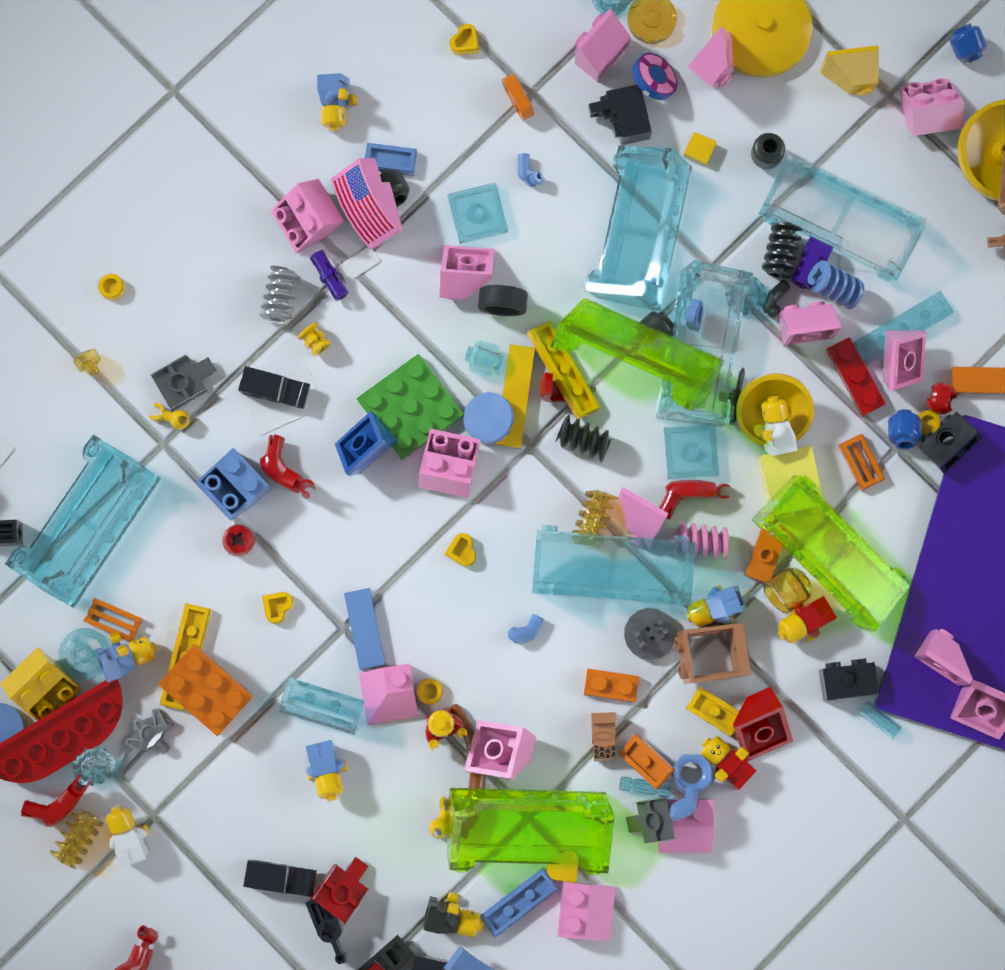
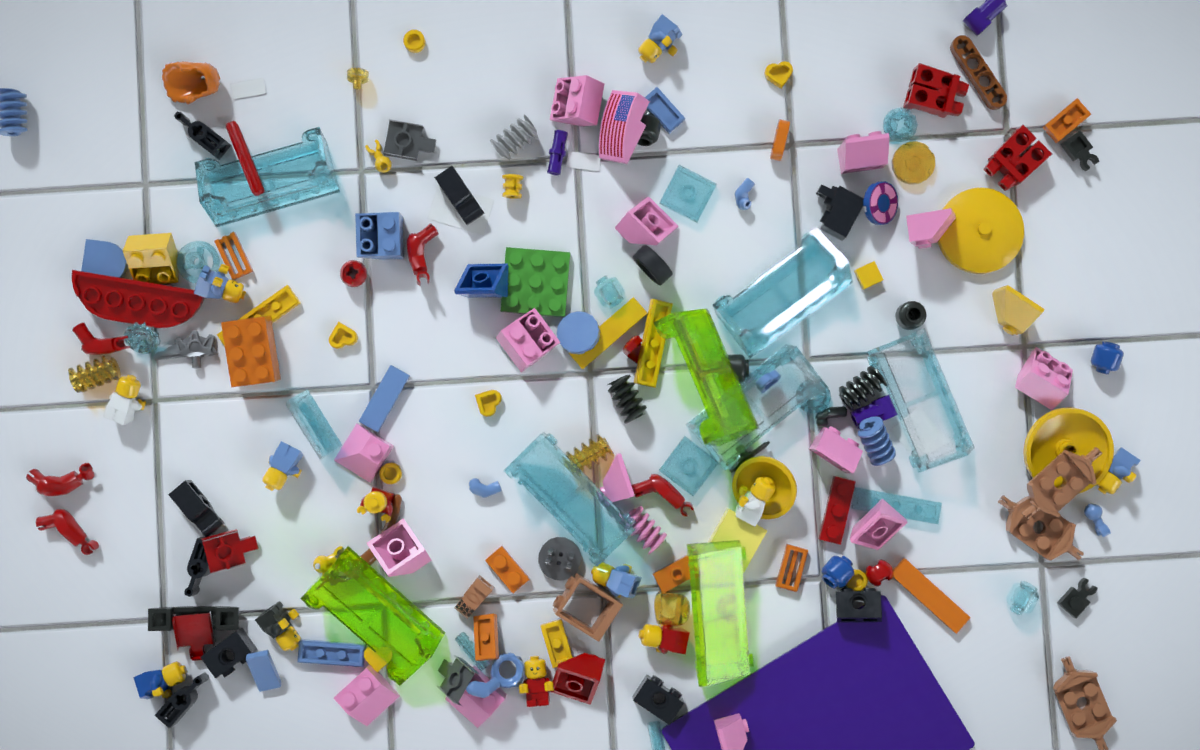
camera: 40 degrees right, 5 degrees up
(48, 521) = (245, 158): none -> red axle

